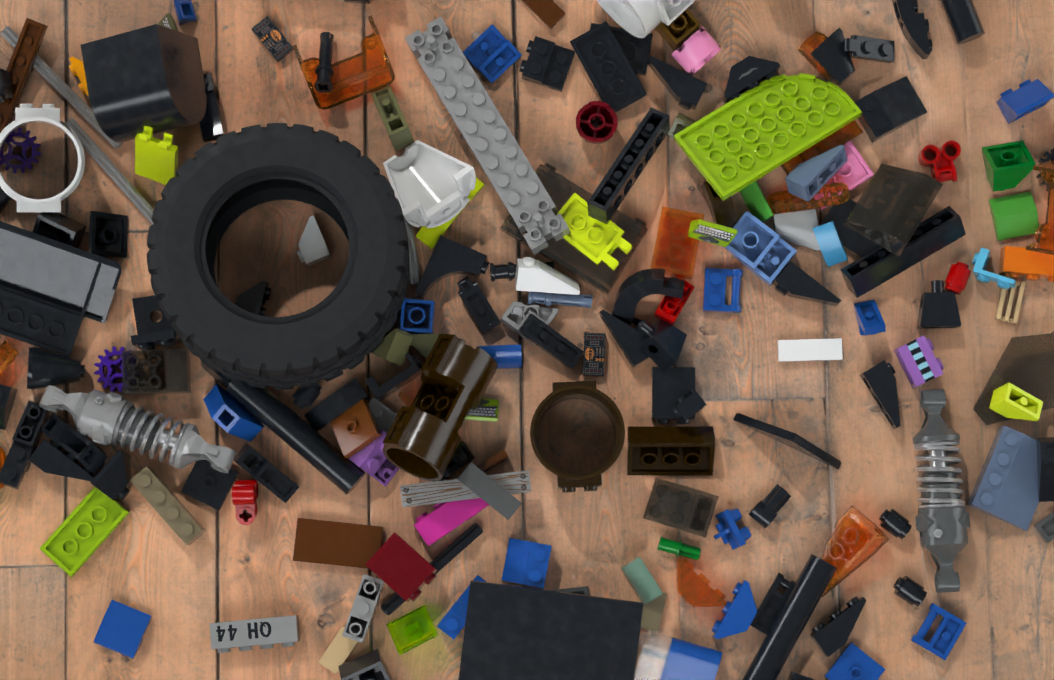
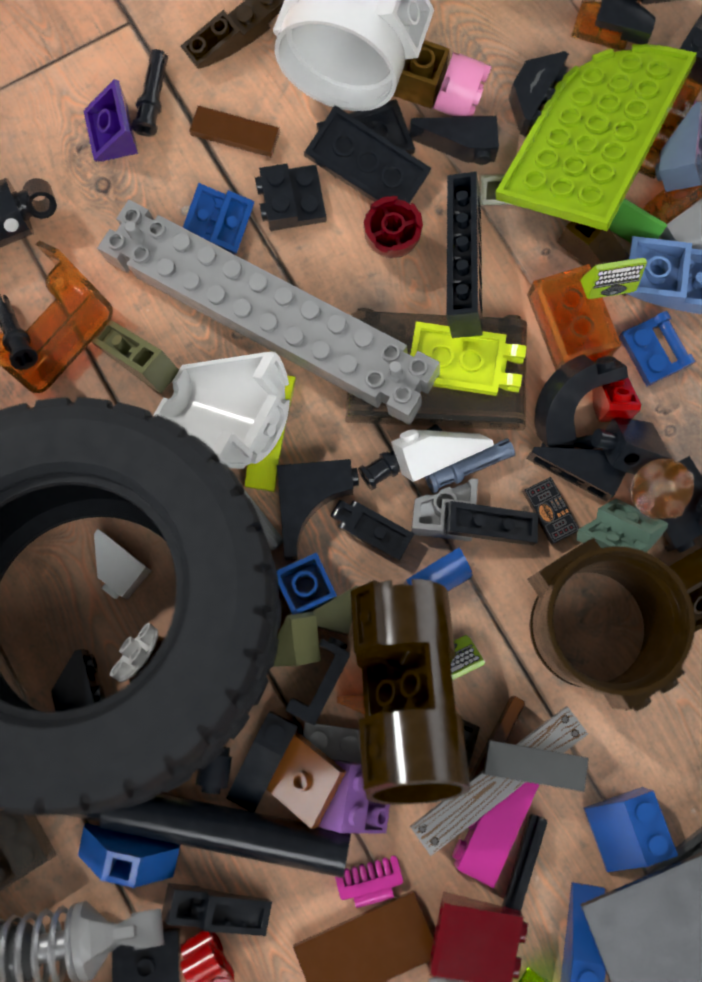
camera: 35 degrees left, 5 degrees down
(296, 301) = (135, 653): none -> white dish
(359, 512) = (373, 889): none -> dark pink piece
(626, 389) = (622, 526): none -> sand green slope
(662, 377) = (662, 488): none -> clear orange dish

